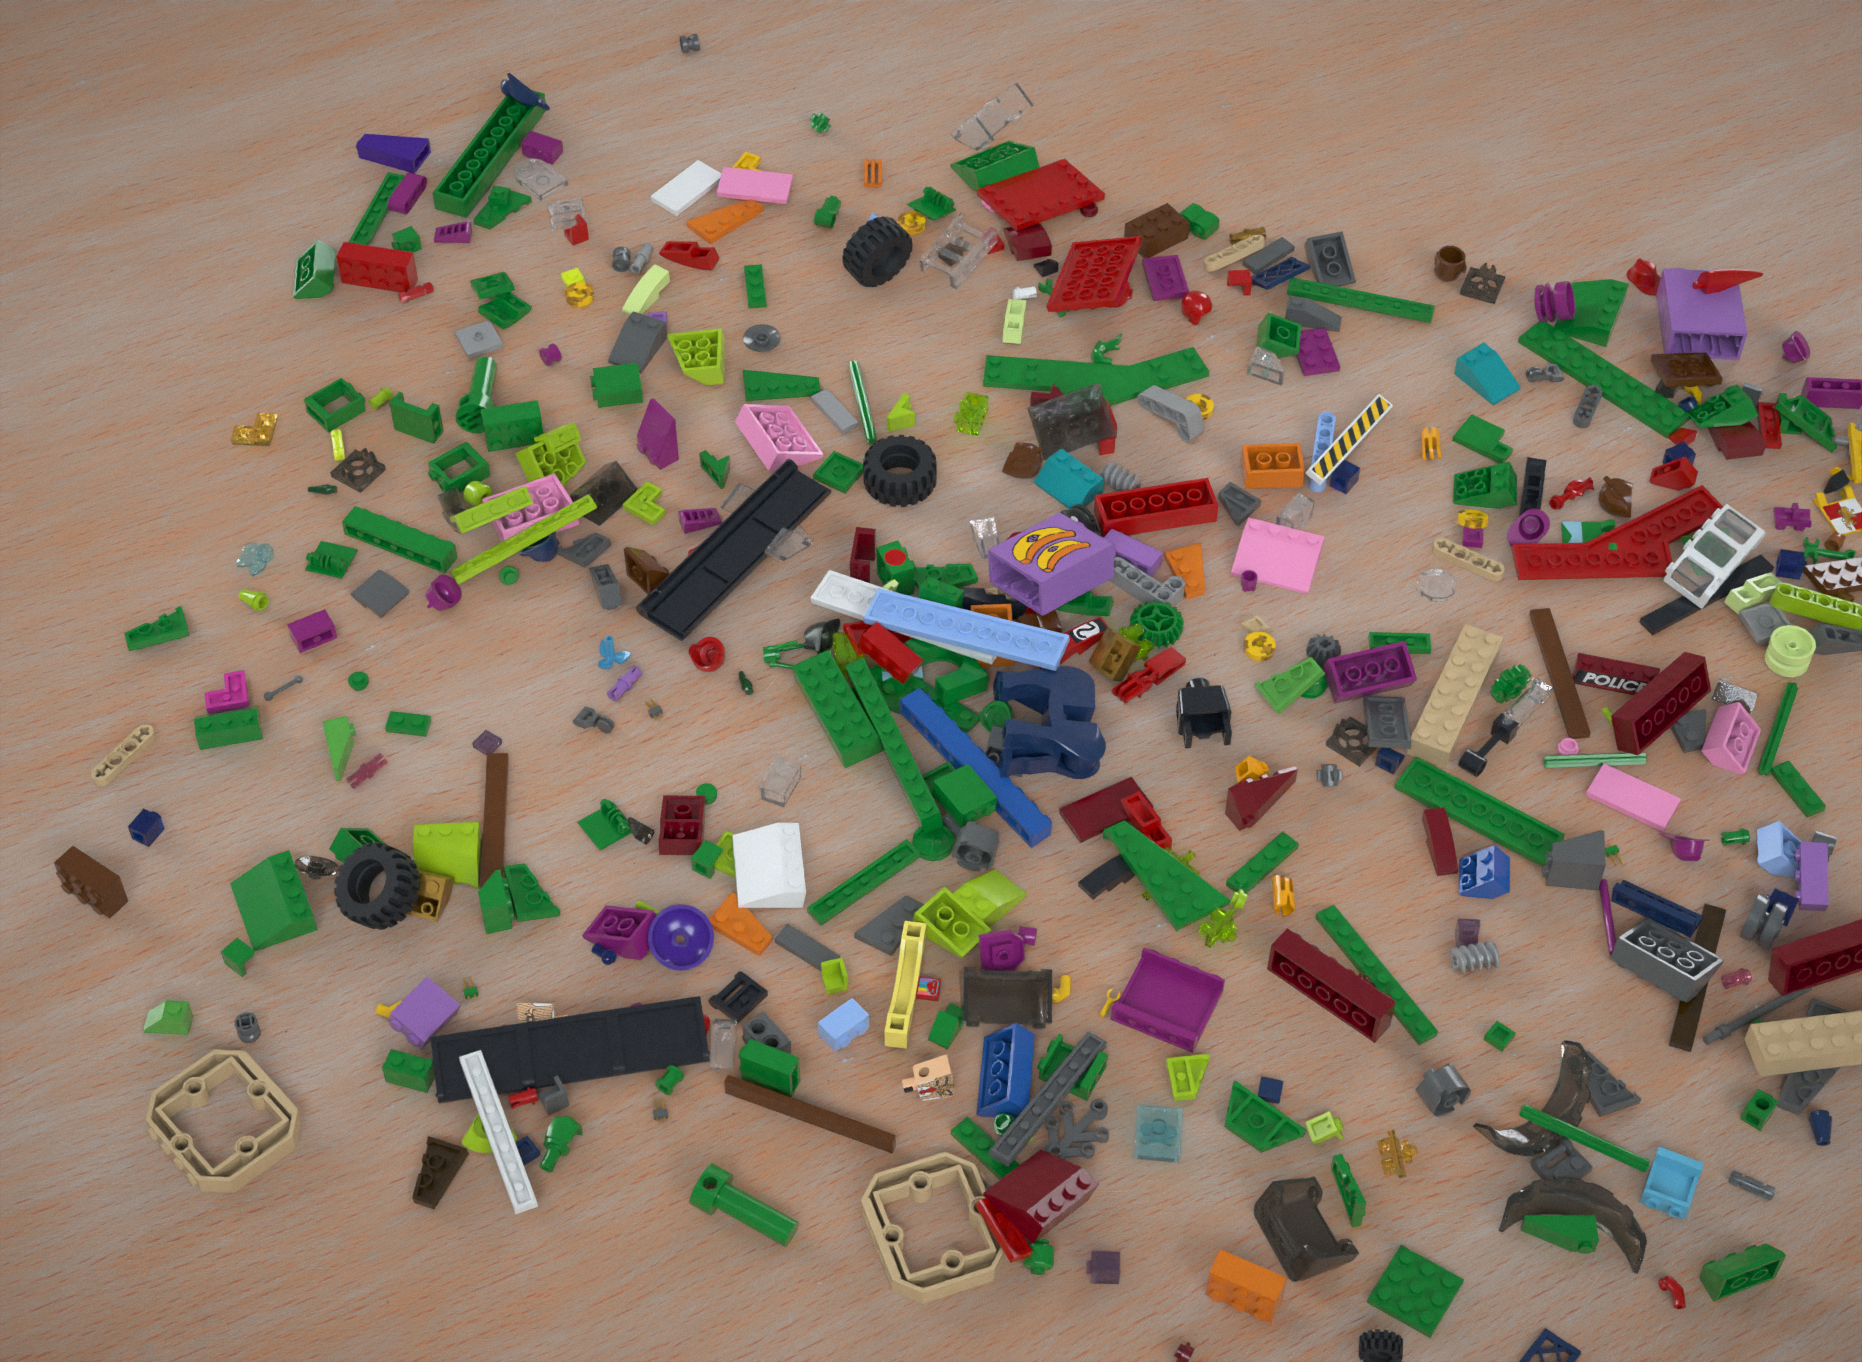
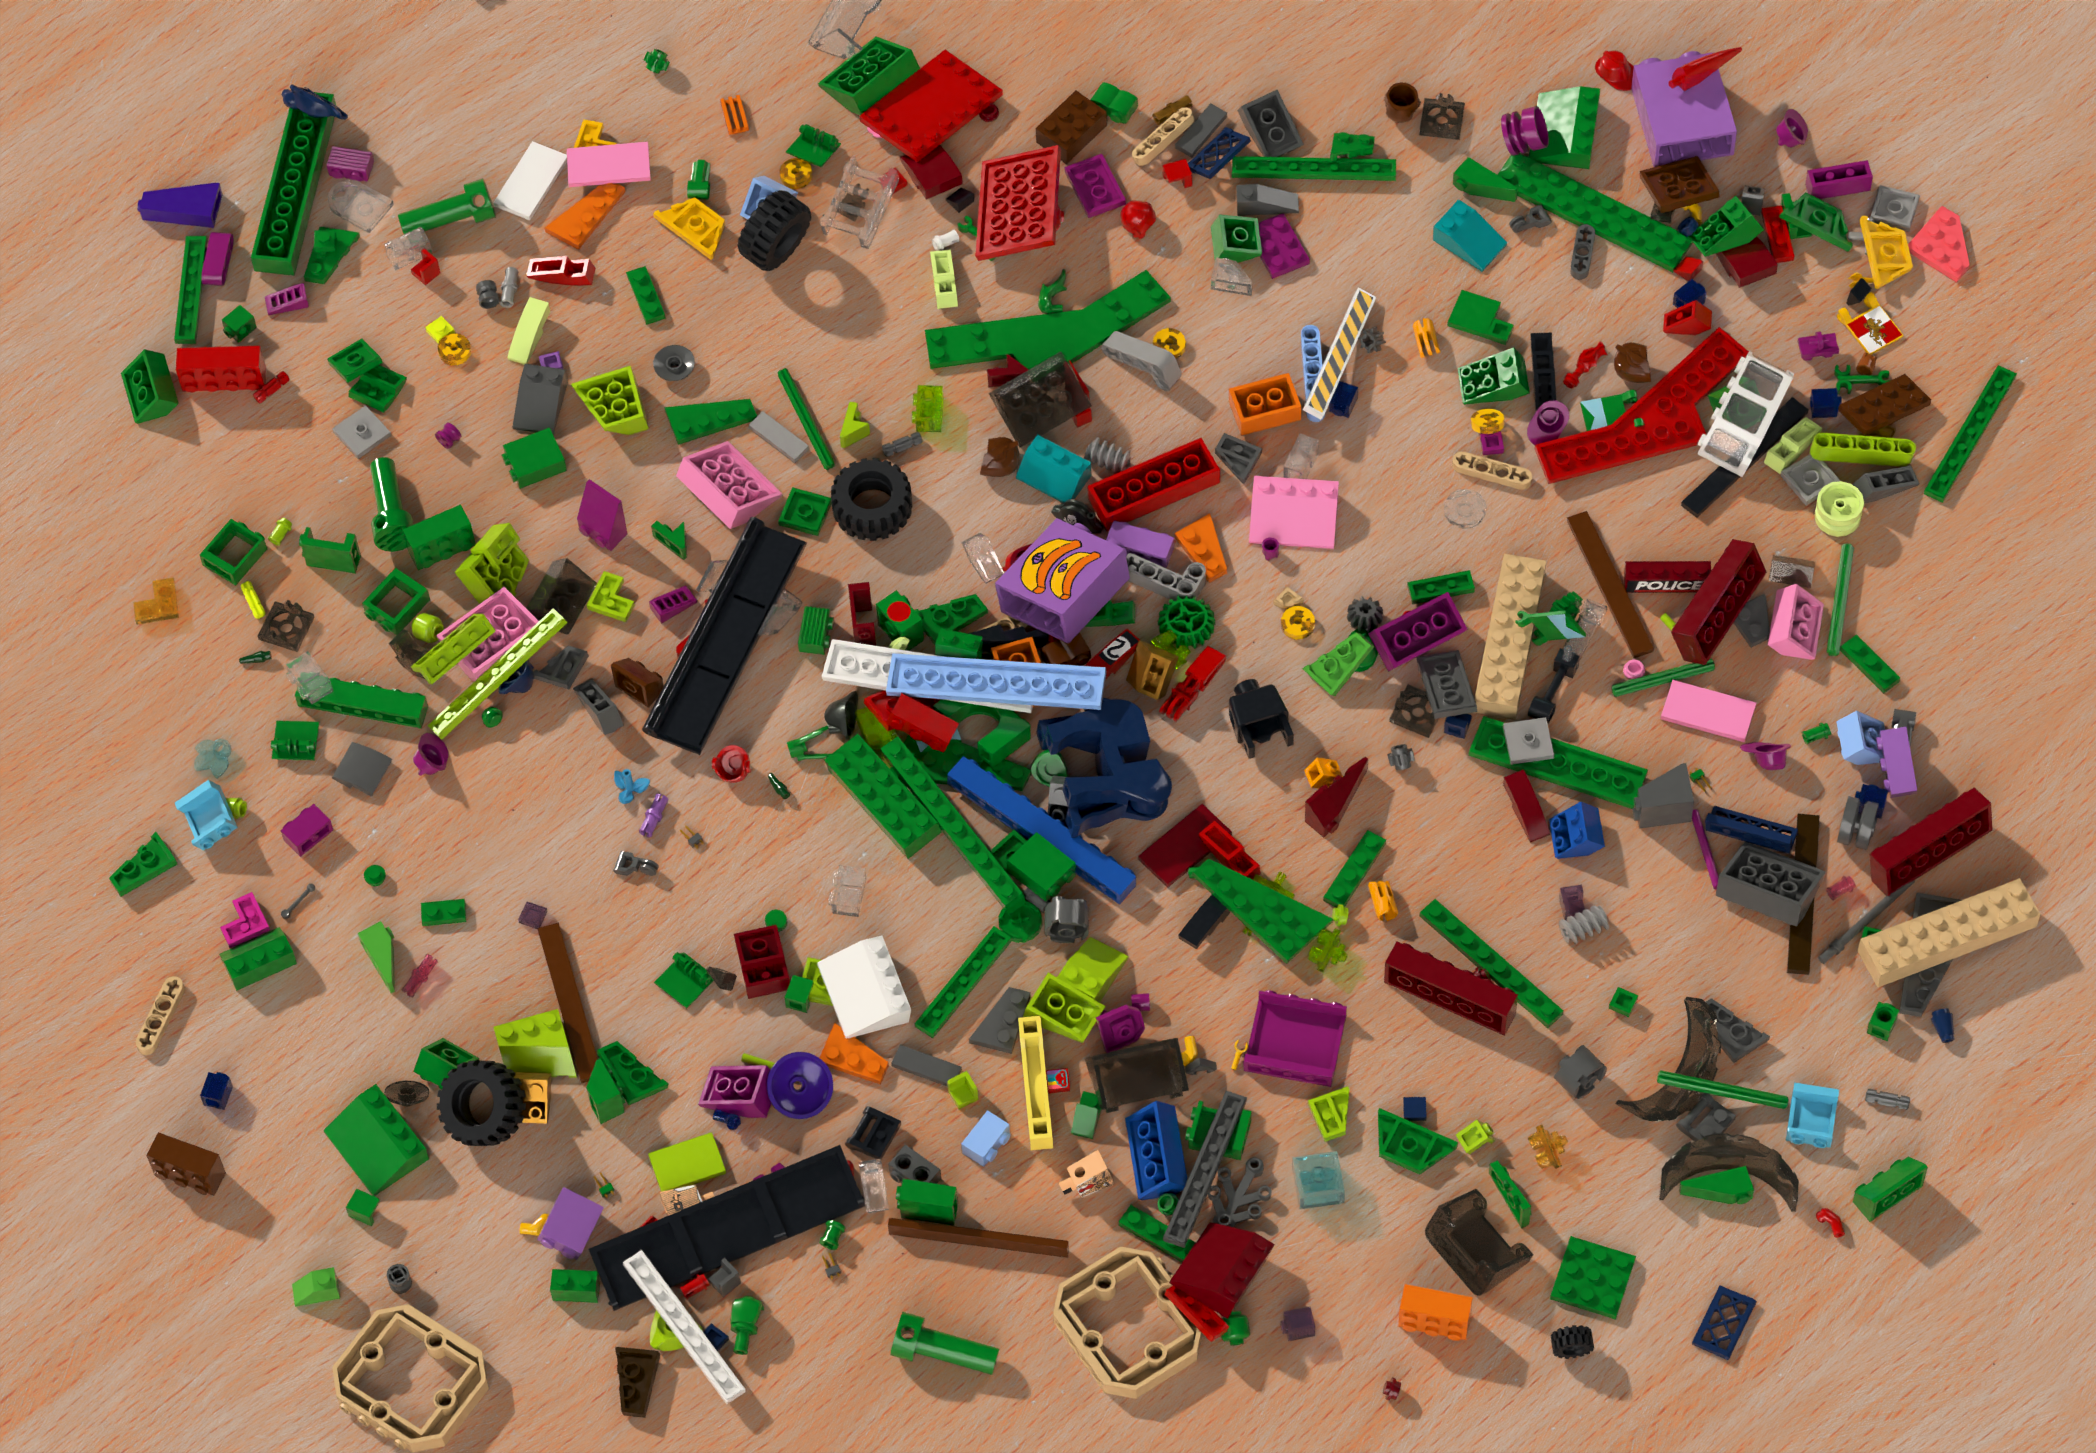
camera: 10 degrees left, 10 degrees up
(229, 599) = (207, 814): none -> medium azure panel
(358, 508) = (308, 677): none -> clear piece
(555, 984) = (687, 1163): none -> lime tile
(614, 192) = (450, 209): none -> green piece
(813, 242) = (694, 224): none -> yellow wing
(817, 563) = (815, 630): none -> green brick
(941, 436) = (902, 444): none -> dark grey axle
(1070, 1004) = (1200, 1065): none -> dark grey tile
(1386, 437) = (1372, 340): none -> dark grey gear
(1399, 289) = (1351, 145): none -> green wing
(1454, 785) = (1528, 741): none -> light grey plate
(1500, 690) = (1551, 626): none -> green flag
(1507, 336) = (1482, 182): none -> green slope

